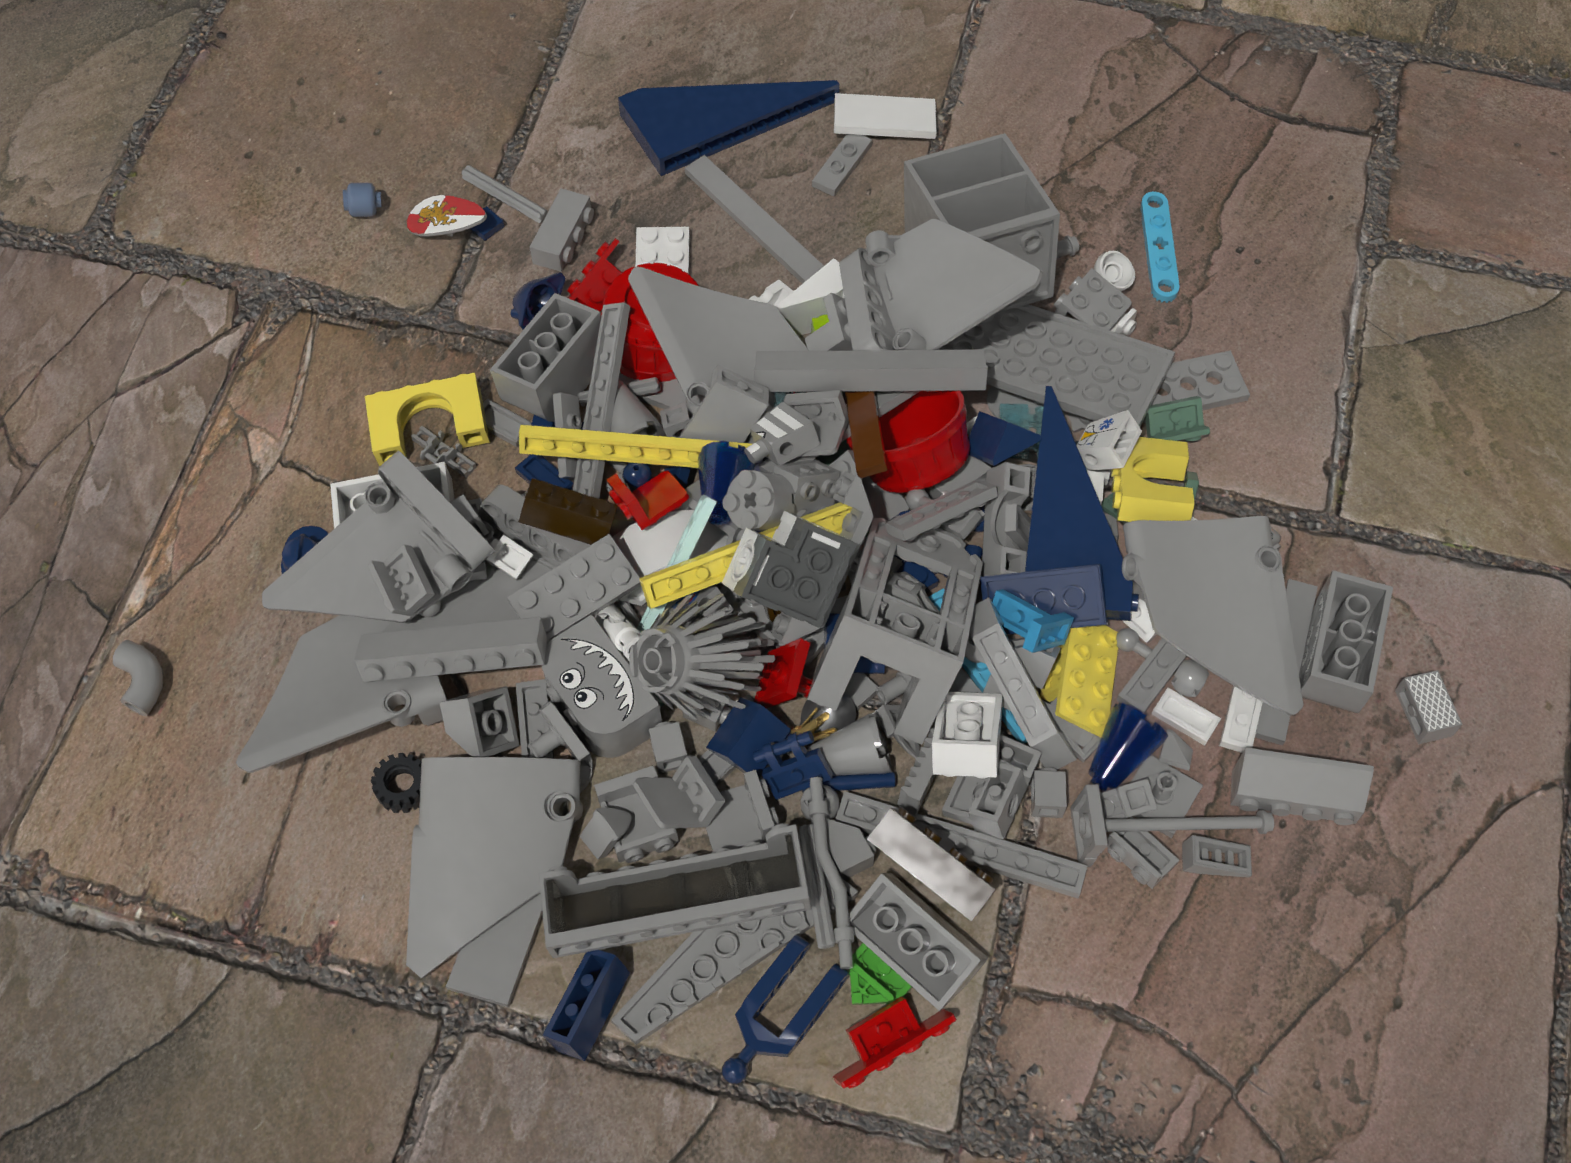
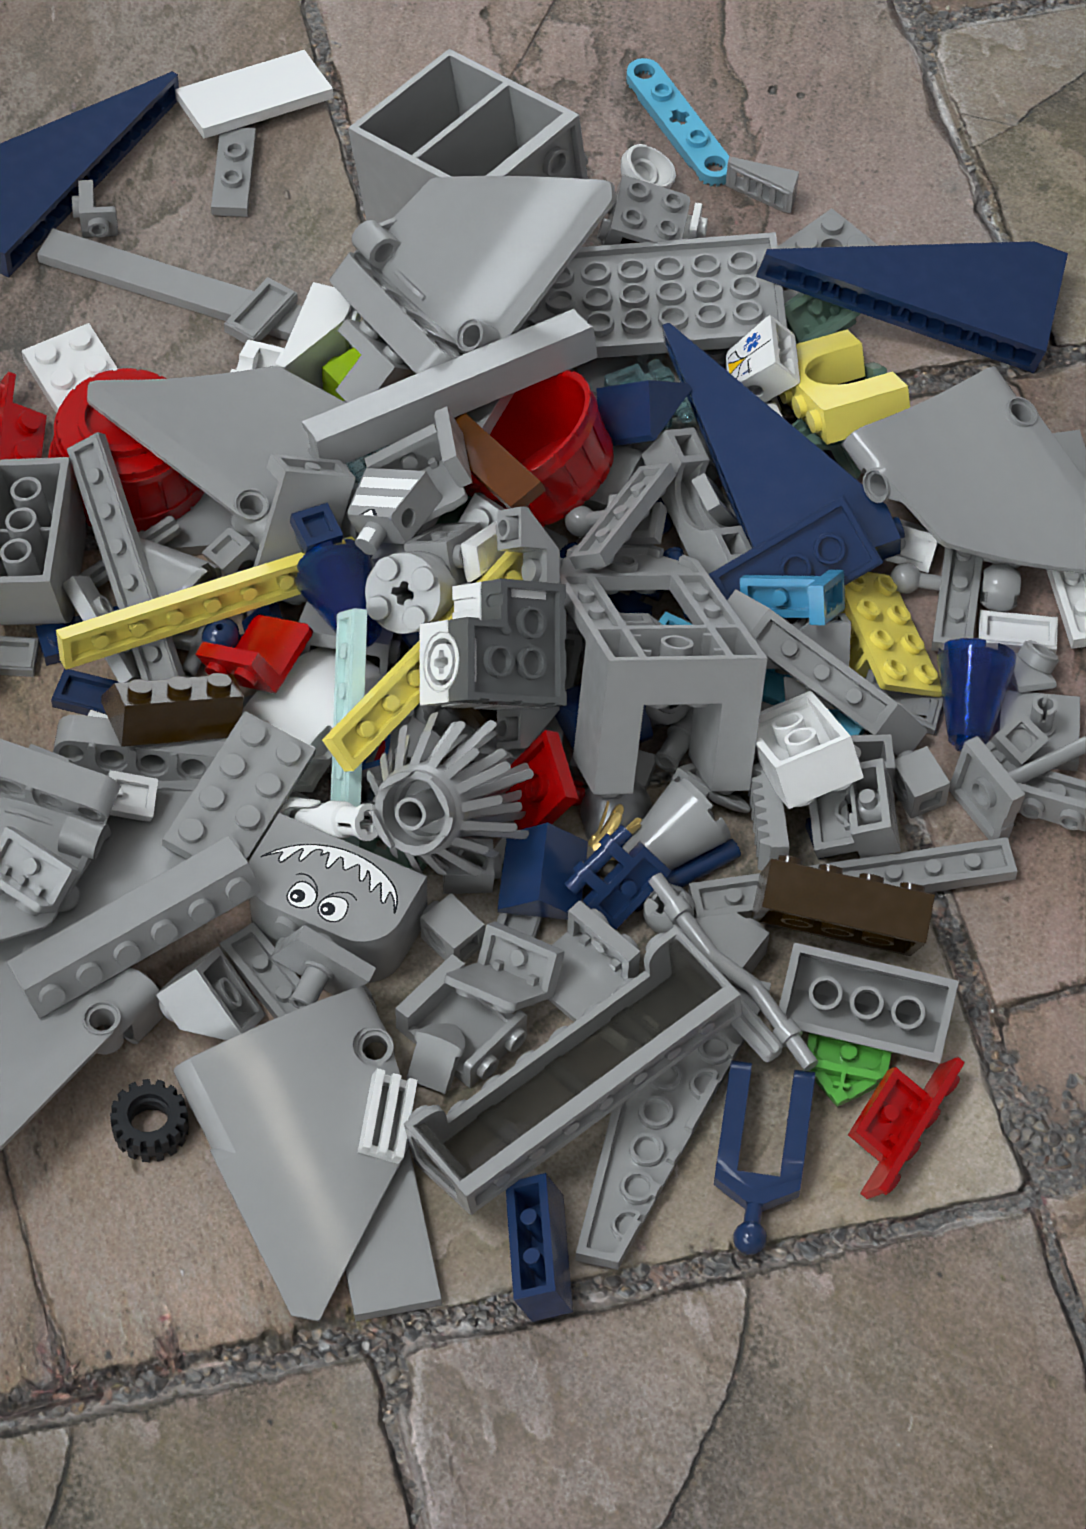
camera: 30 degrees left, 5 degrees down
(558, 838) = (395, 1084): none -> white tile
(725, 428) = (315, 527): none -> dark blue tile
(732, 155) = (93, 220): none -> light grey bracket
(799, 264) = (261, 311): none -> light grey tile
(820, 495) = (480, 552): none -> white tile
(844, 412) = (452, 447): none -> light grey tile
(1188, 742) = (1038, 656): none -> light grey tile
(1194, 314) = (769, 185): none -> light grey slope
(1286, 453) = (969, 295): none -> dark blue slope

